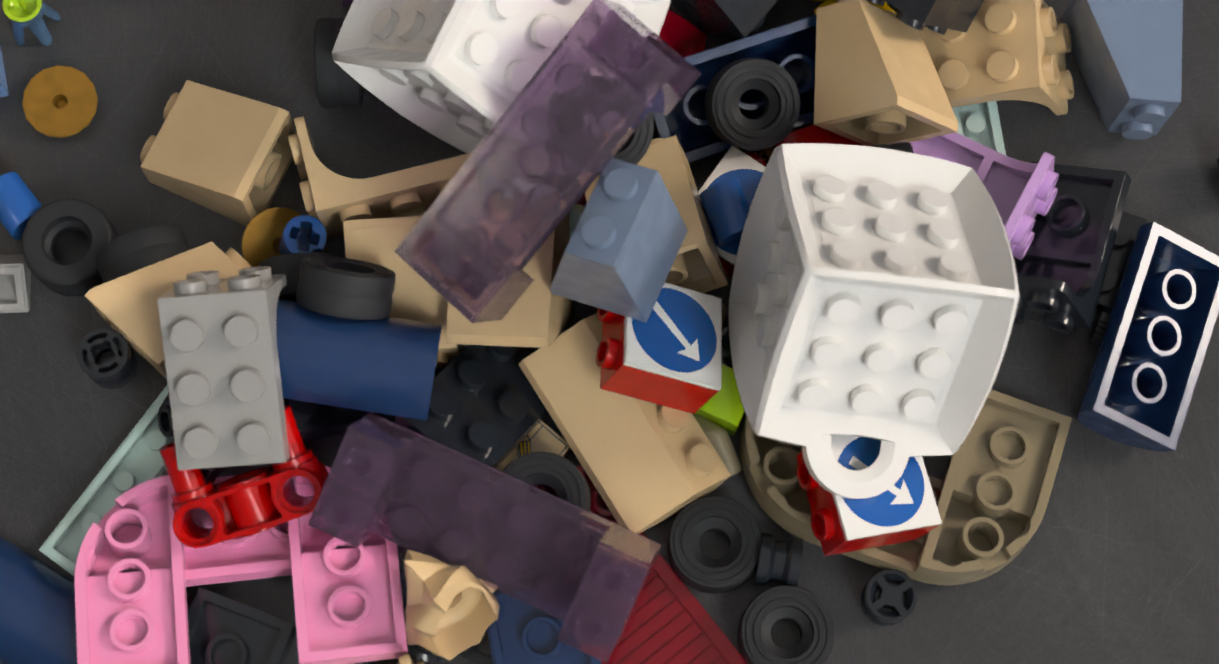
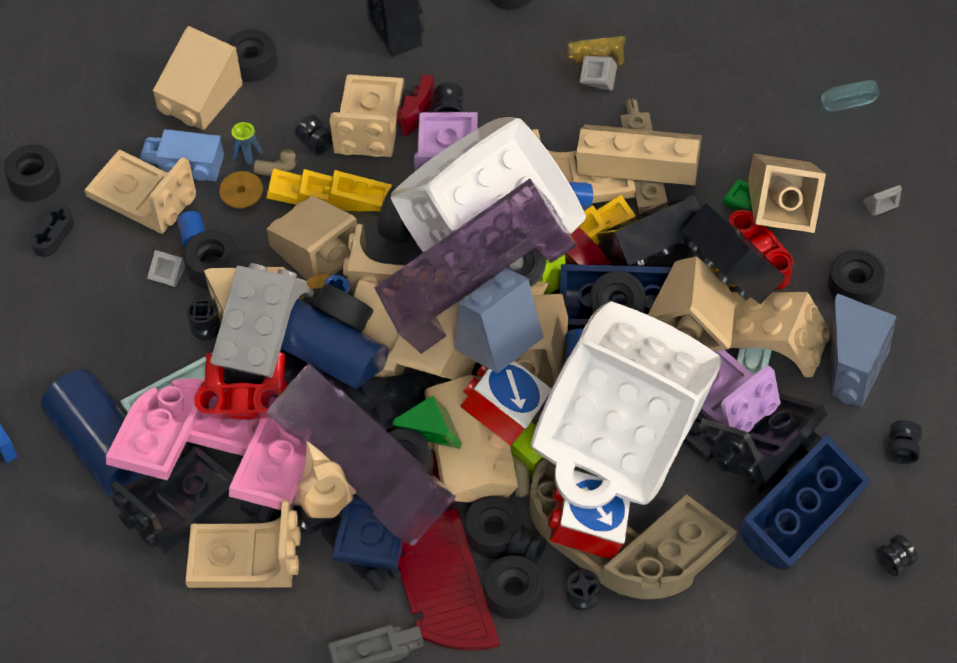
camera: 30 degrees right, 20 degrees down
(103, 37) = (285, 163): none -> dark tan arm
(204, 55) = (340, 190): none -> yellow slope
(563, 426) = (432, 422): none -> green slope

